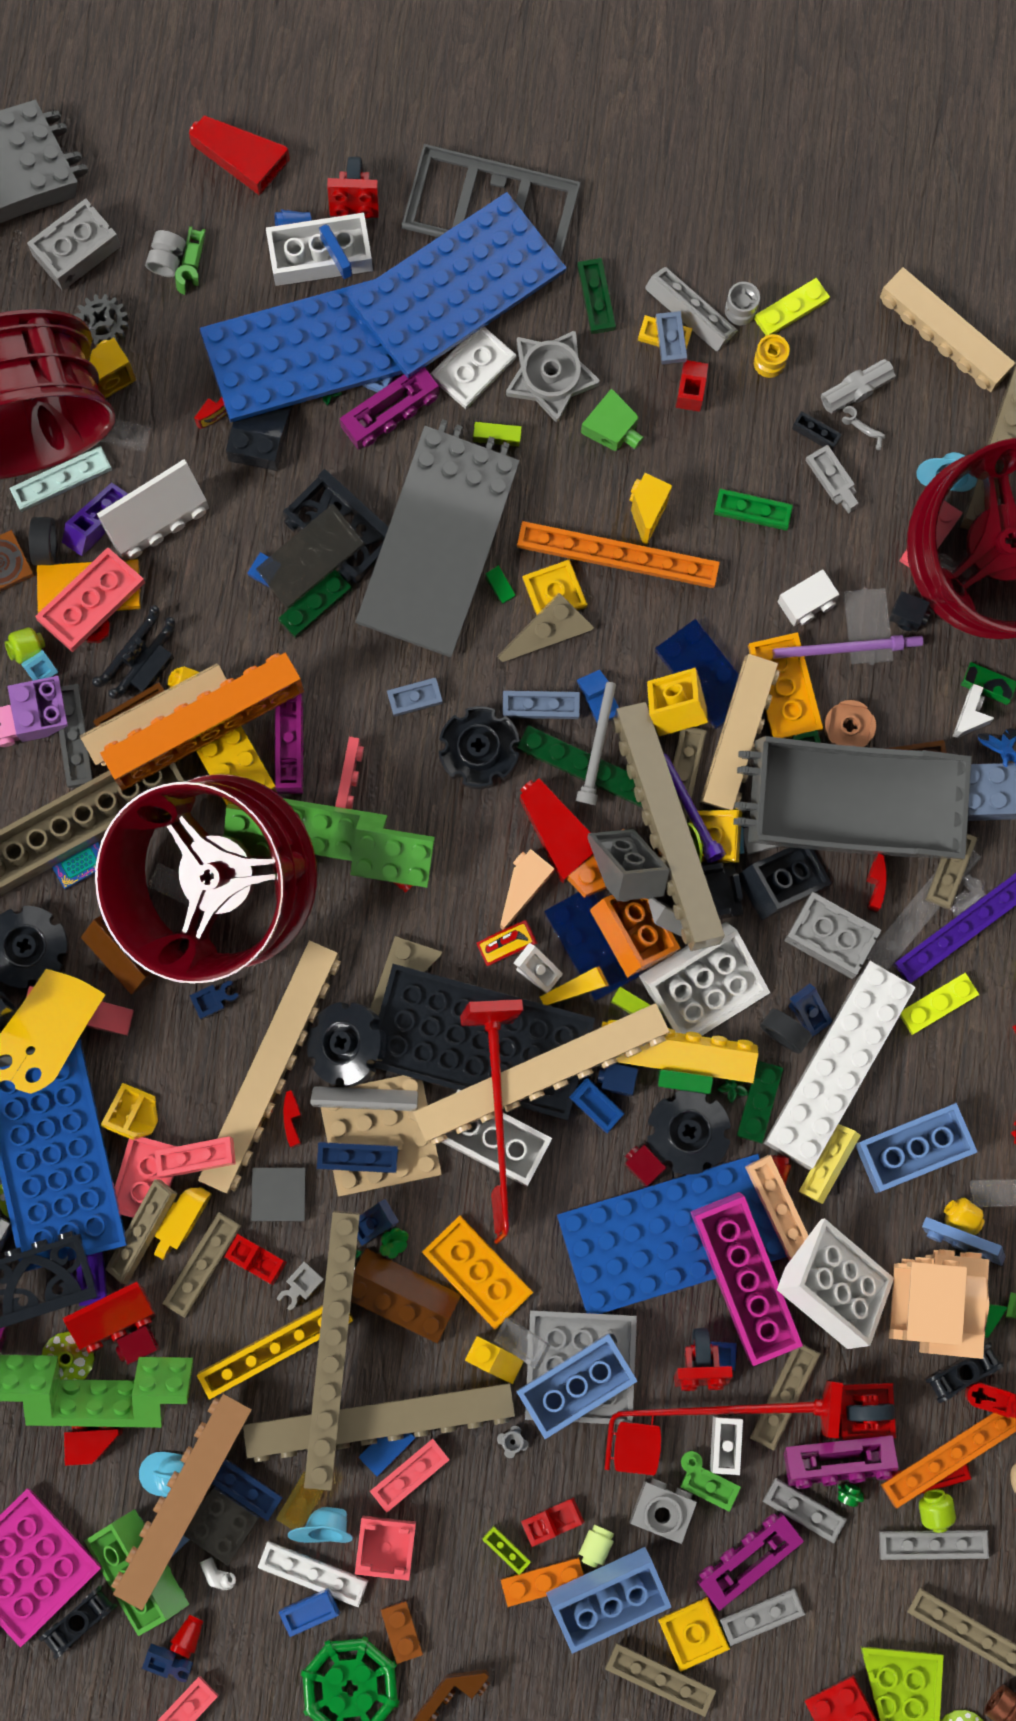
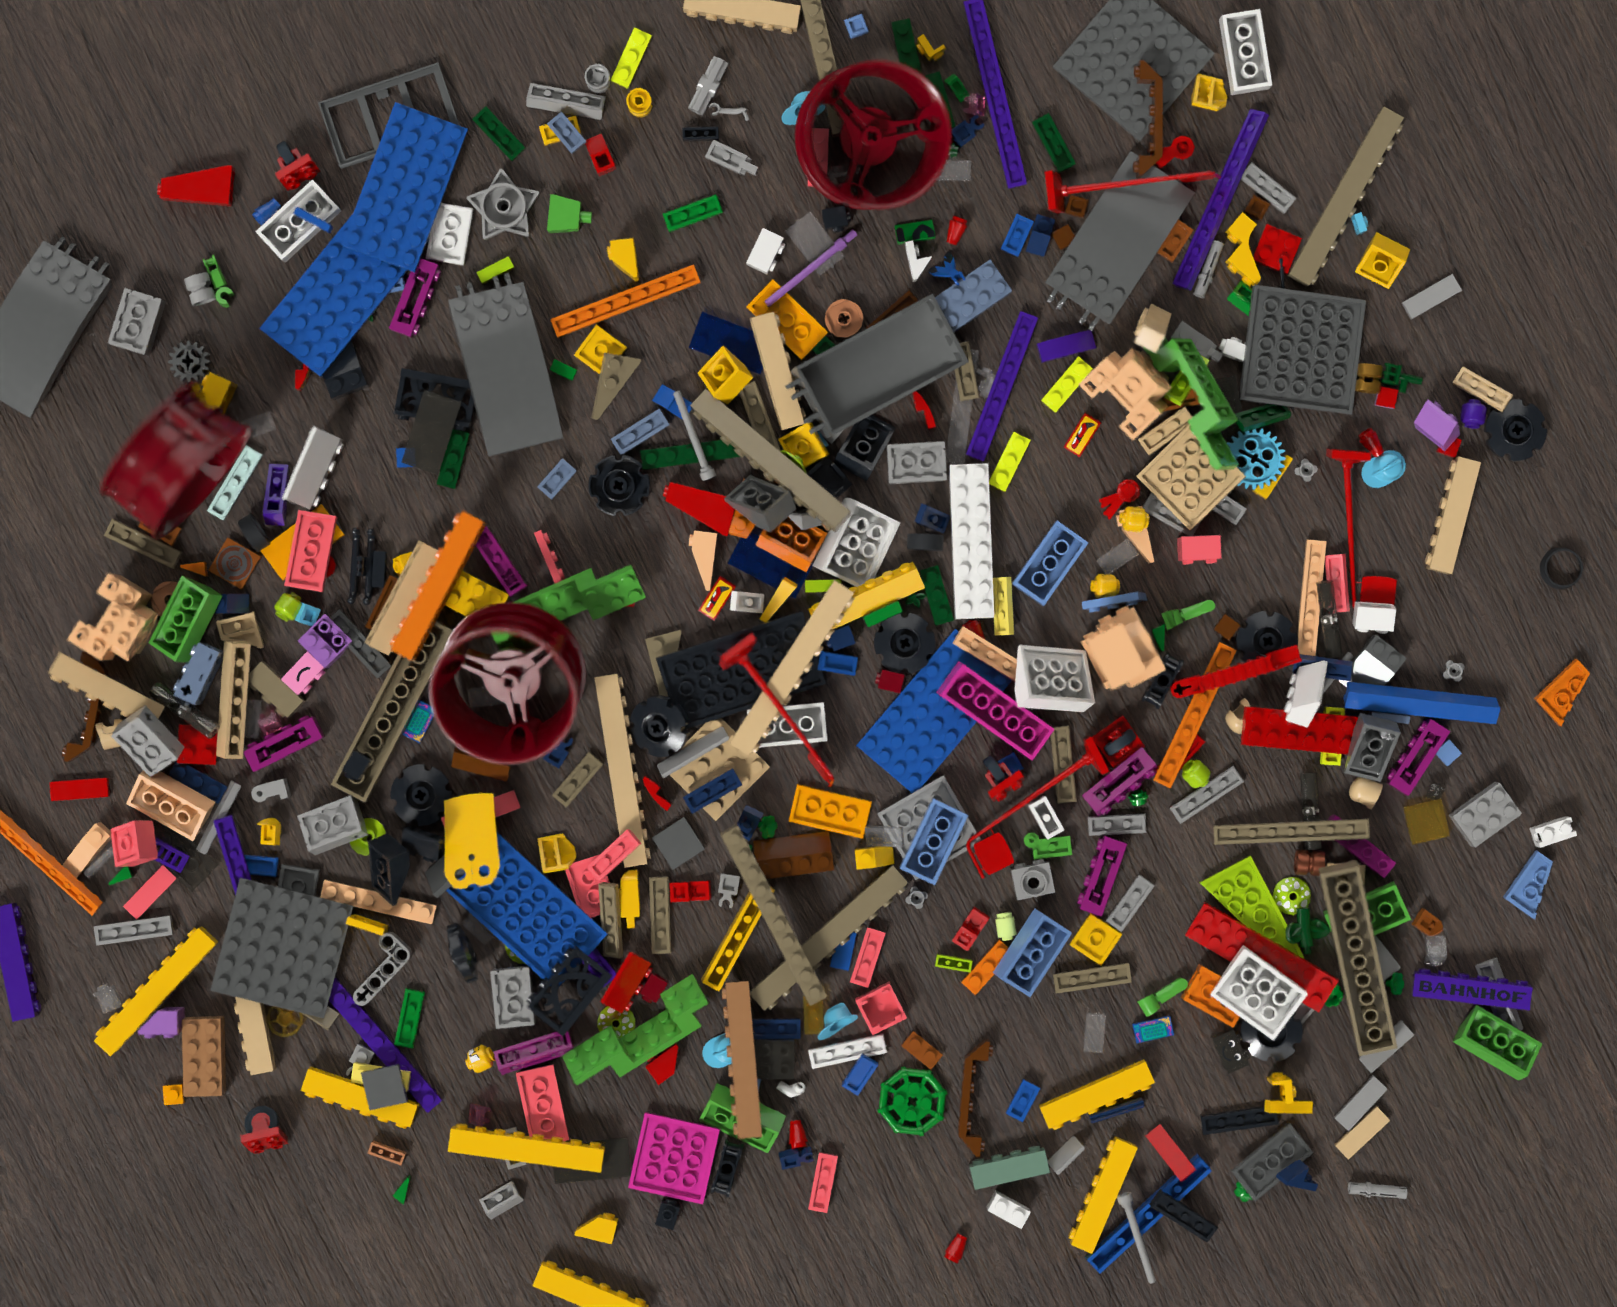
camera: 30 degrees left, 10 degrees up
(213, 1046) = (577, 779): none -> dark tan tile
(712, 850) = (807, 458): dark purple piece -> none

